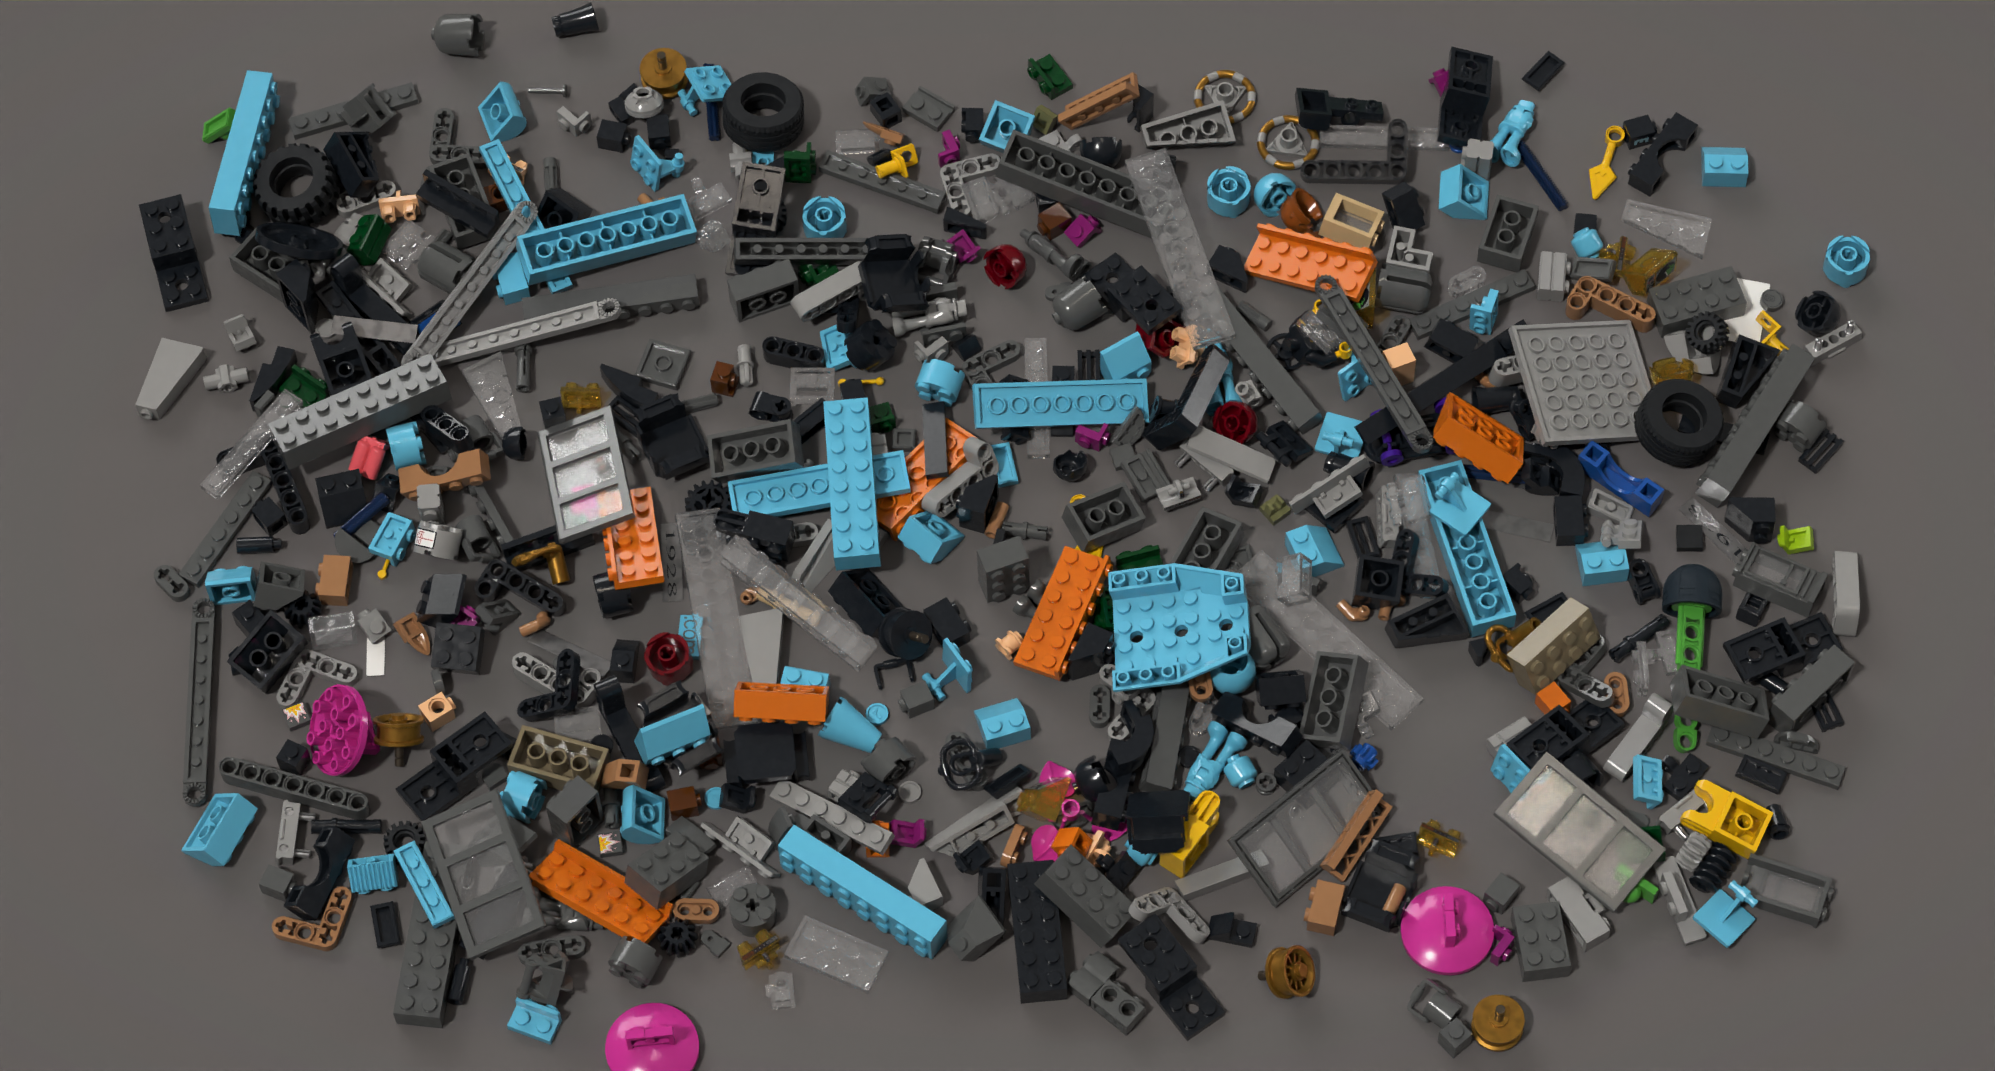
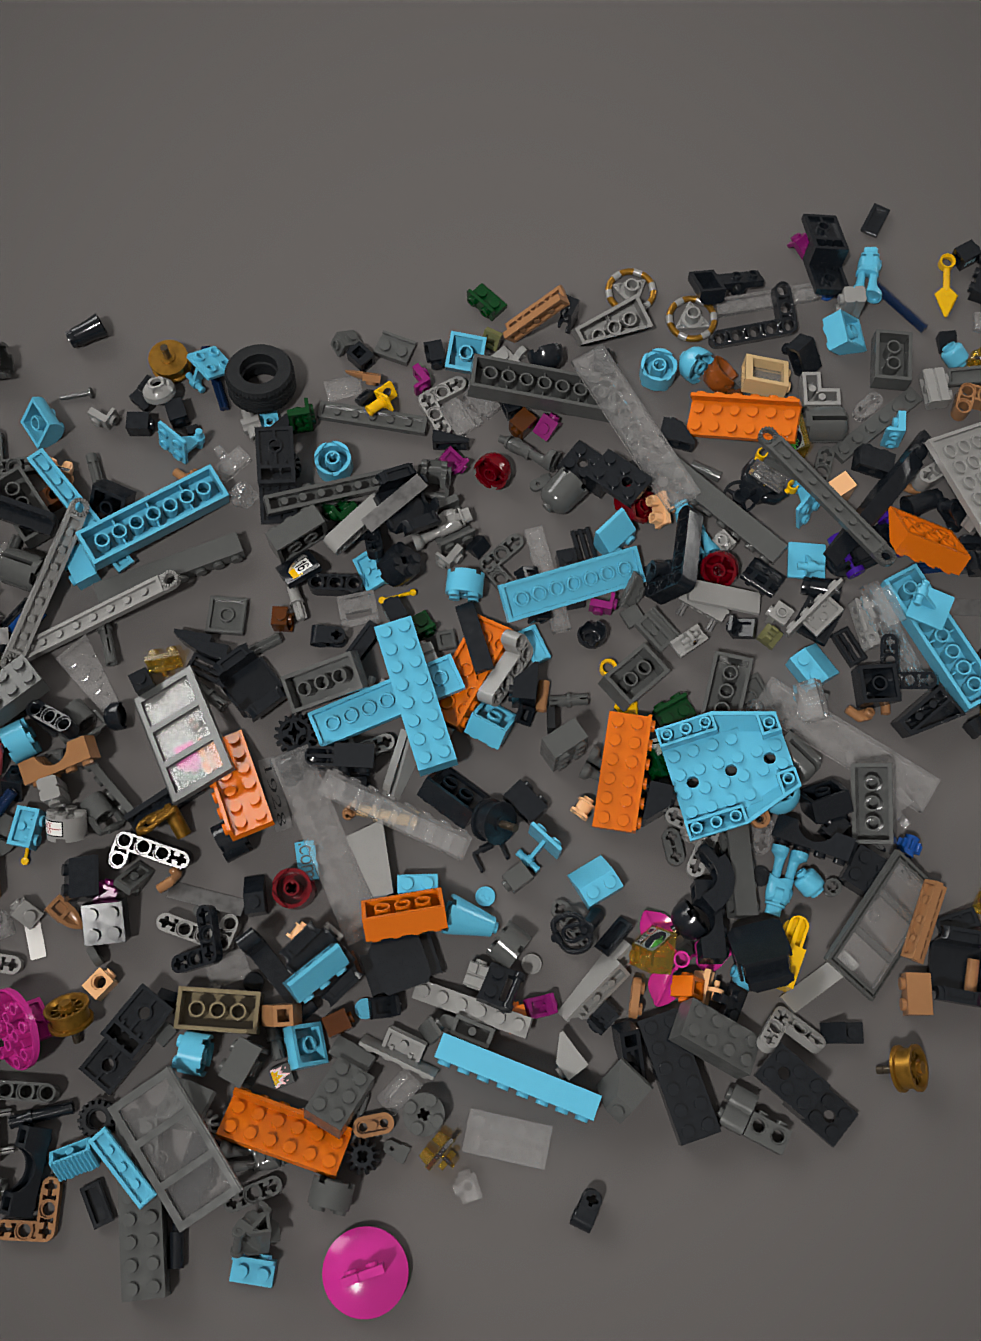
camera: 15 degrees left, 10 degrees up
(756, 328) = (298, 568): none -> black slope
(879, 274) = (394, 503): none -> flat silver sticker
(900, 1042) = (585, 1213): none -> black piece
(970, 534) = (524, 715): none -> black slope
(1289, 484) = (780, 613): none -> light grey bracket

